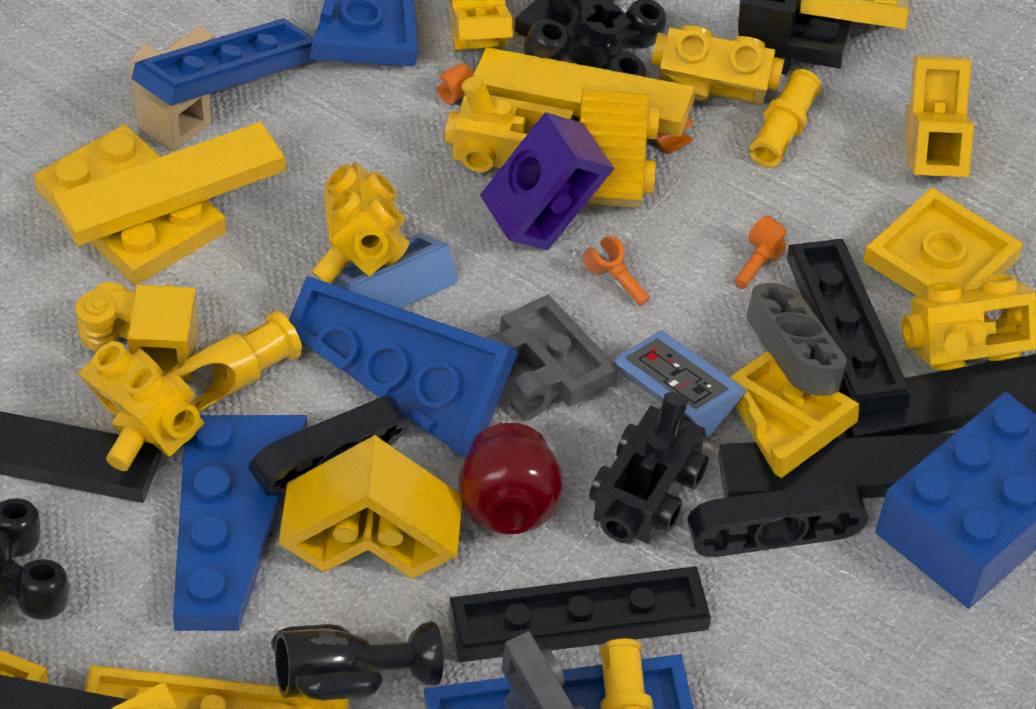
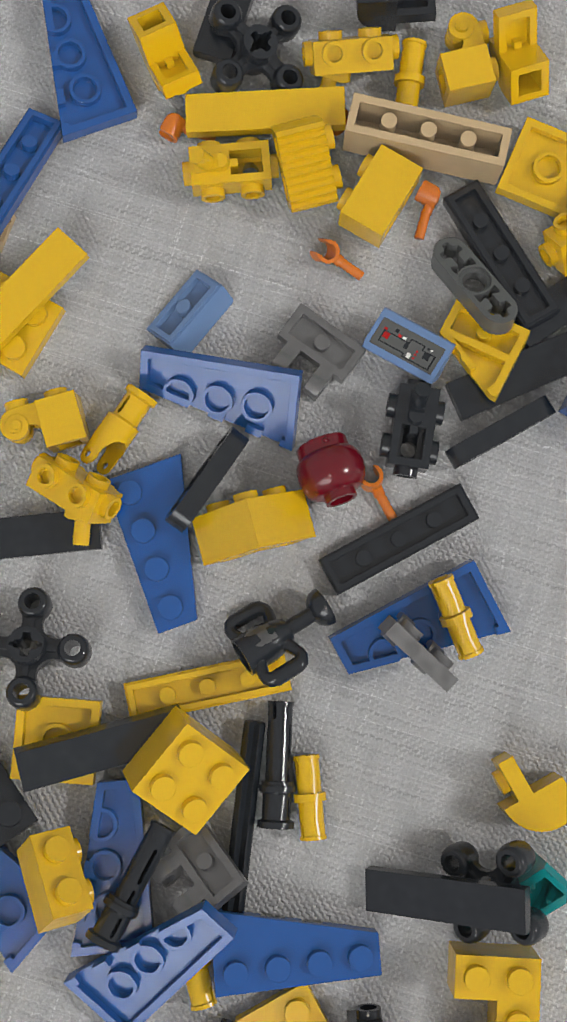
camera: 20 degrees left, 35 degrees up
(360, 222) = (159, 291): yellow brick -> none
(546, 181) = (271, 213): dark purple brick -> none
(570, 538) = (379, 493): none -> orange hand
(699, 211) = (379, 195): none -> yellow brick
(784, 168) = (428, 138): none -> tan brick
(865, 120) = (467, 69): none -> yellow brick

